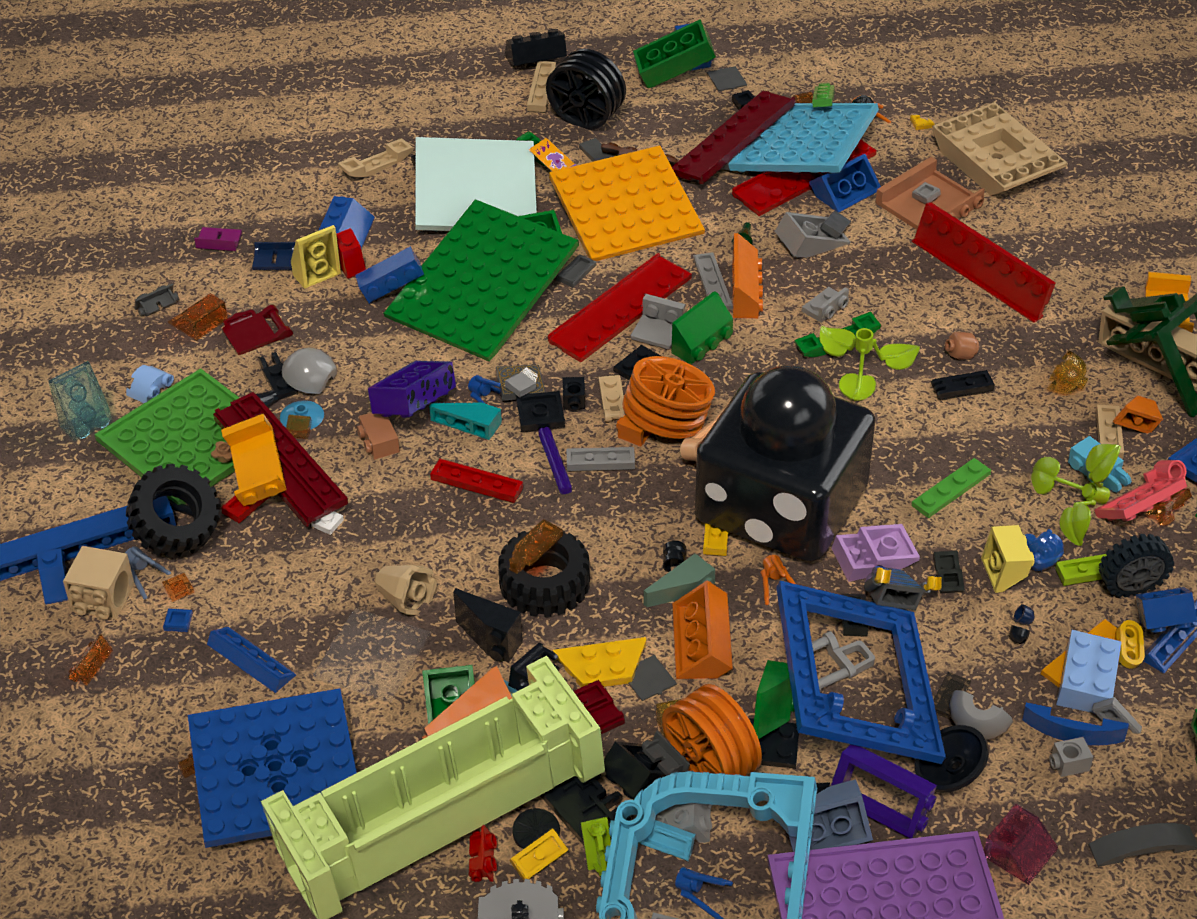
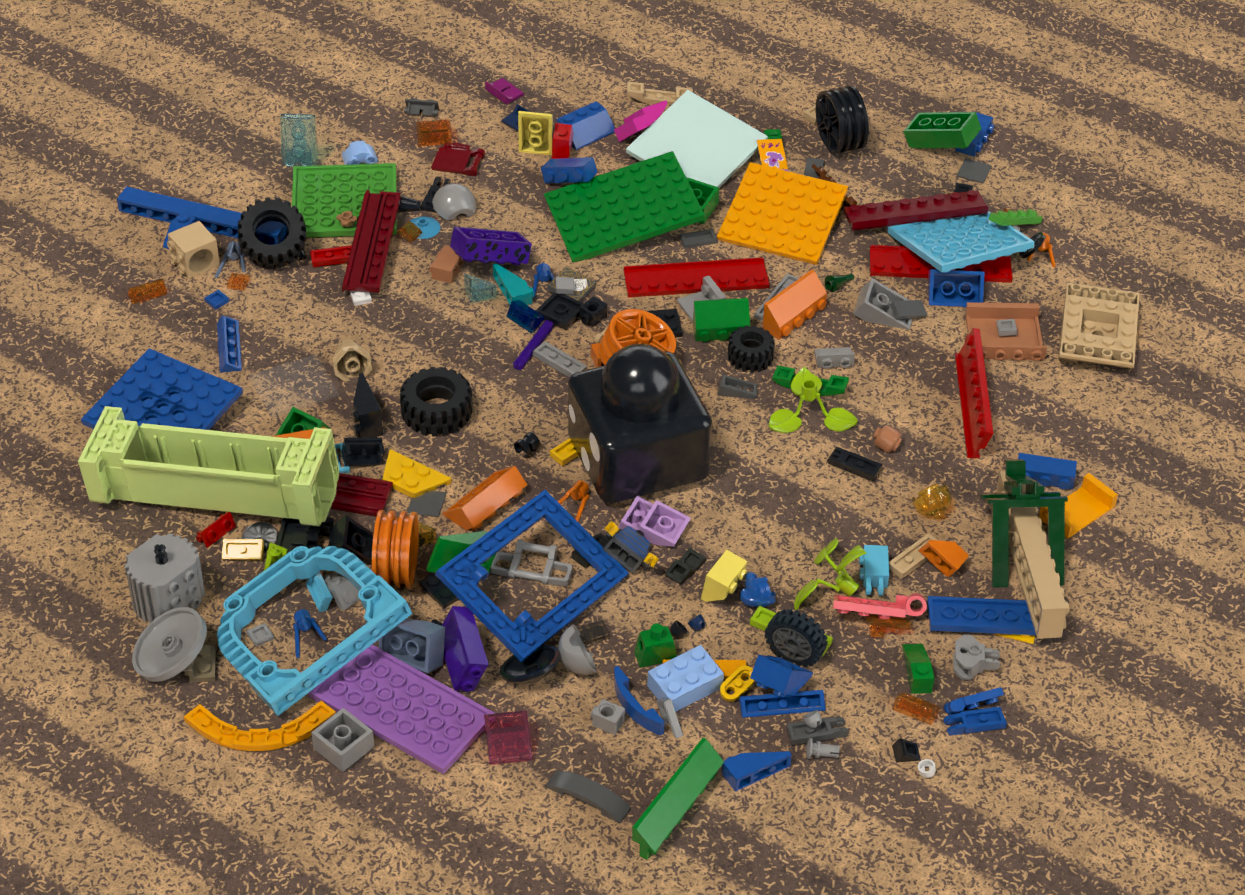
camera: 40 degrees right, 0 degrees up
(255, 459) = (353, 233): light orange panel -> none
(397, 192) = (639, 120): none -> dark pink slope
(438, 440) = (478, 289): none -> clear light blue slope
(476, 480) = (471, 327): red plate -> none
(514, 438) = (524, 316): none -> clear blue slope
(534, 545) = (434, 377): clear orange hinge -> none
(535, 47) = (856, 74): black slope -> none
(662, 750) = (365, 553): dark grey hinge -> none
(679, 581) = (503, 458): sand green slope -> none
(755, 339) = (751, 348): none -> black tyre
(920, 123) = (1075, 277): yellow tile -> none
(951, 488) = (759, 520): bright green plate -> none
(1034, 653) = (654, 646): none -> green torso
(1091, 296) = (1050, 470): none -> blue brick

